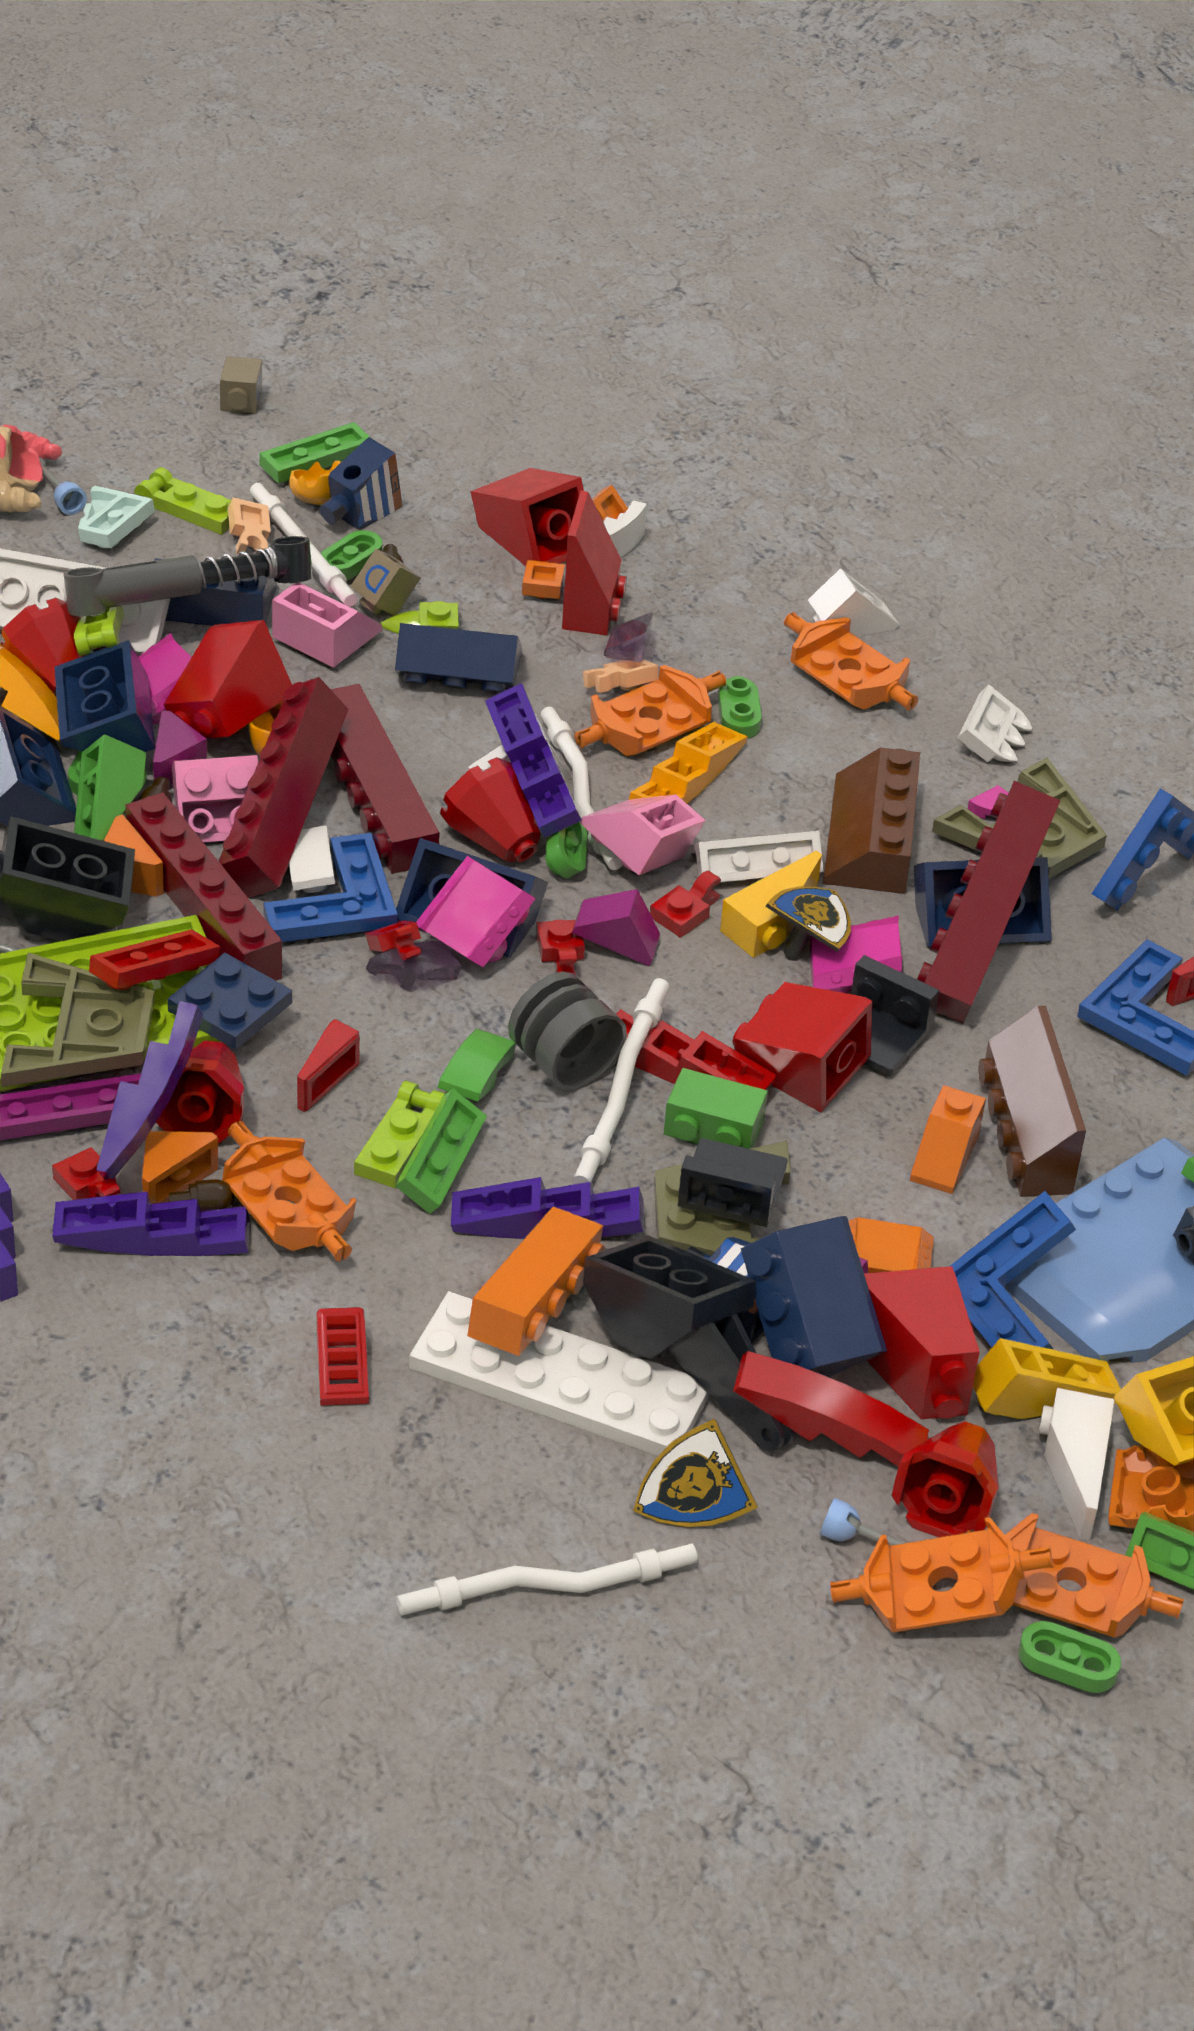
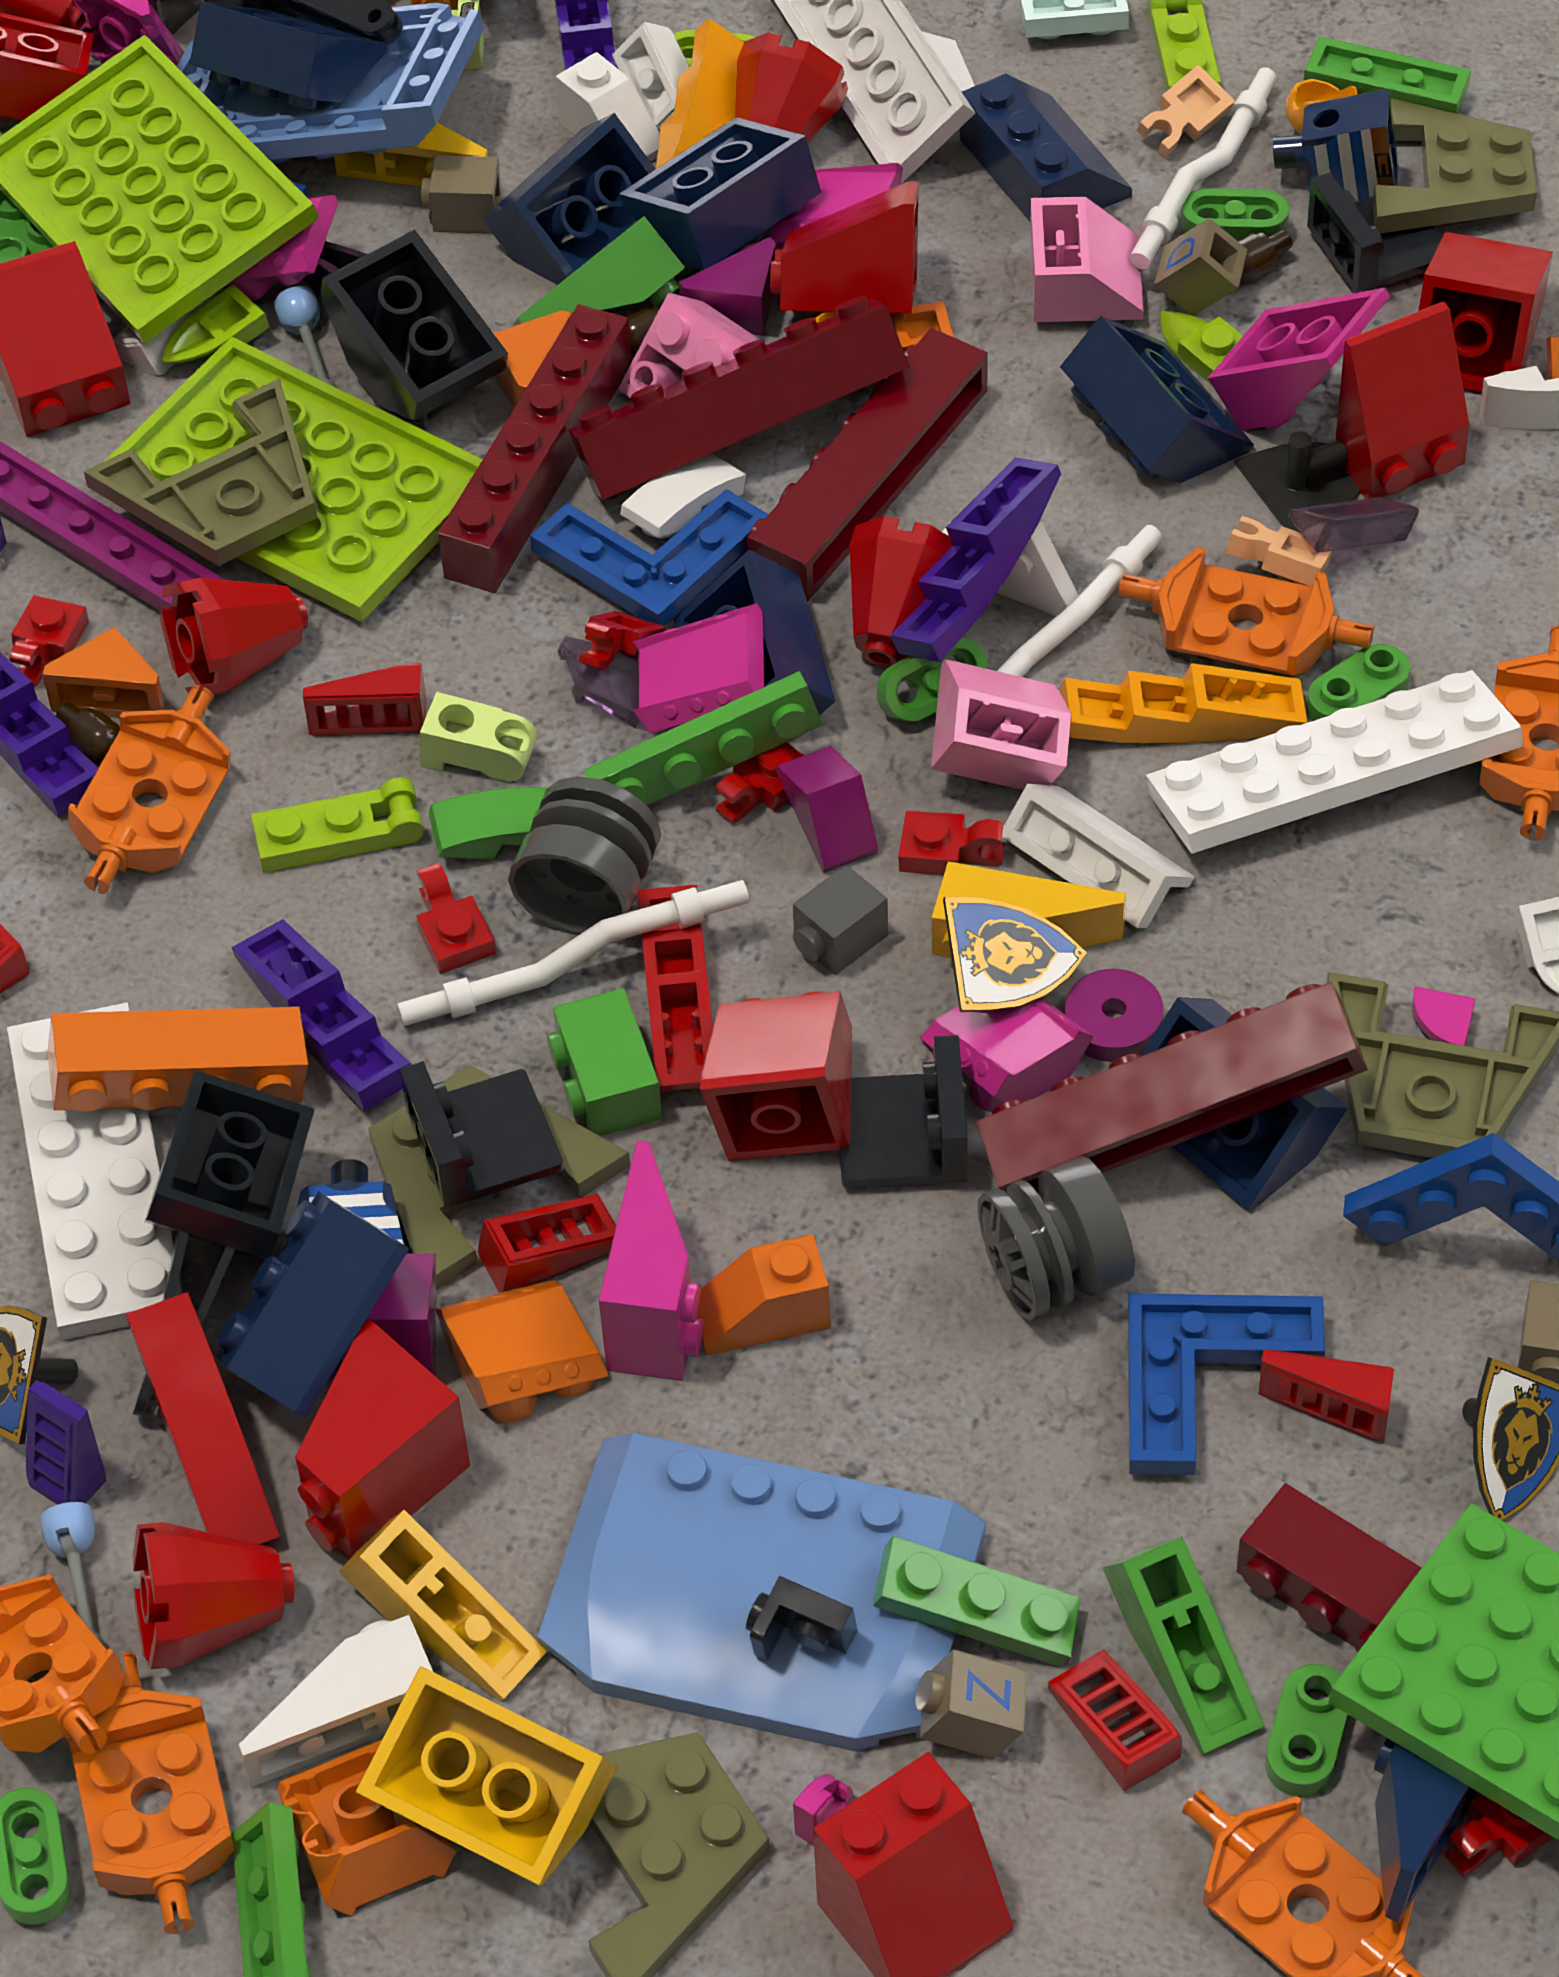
camera: 60 degrees right, 10 degrees up
(96, 589) = (853, 61): dark grey piece -> none
(98, 630) = (827, 104): lime plate -> none
(142, 1104) = (113, 591): dark purple slope -> none
(153, 959) = (355, 471): red plate -> none
(233, 1000) = (377, 570): dark blue plate -> none
(403, 1037) = (476, 738): none -> yellowish green leg
(428, 522) = (1355, 244): none -> black bracket
(429, 467) = (1468, 168): none -> olive wing
(441, 1151) = (327, 871): bright green plate -> none
(514, 575) = (1289, 355): none -> dark pink slope
(535, 1127) = (451, 928): none -> red plate
(536, 933) = (713, 741): none -> bright green plate
(566, 646) = (1299, 475): none -> pearl dark grey shield
(706, 969) = (840, 920): none -> dark grey brick
(790, 1486) = (61, 1447): none -> dark purple slope
(791, 739) = (1333, 760): none -> white plate
(816, 1207) = (516, 1264): none -> red slope
(873, 822) = (1276, 925): reddish brown slope -> none
(875, 903) = (1119, 993): none -> magenta piece
(899, 1162) = (647, 1287): none -> dark pink slope
(1000, 1259) = (549, 1450): blue plate -> none
(1025, 979) = (1056, 1237): none -> dark grey wheel
(1034, 1106) = (884, 1348): slope -> none

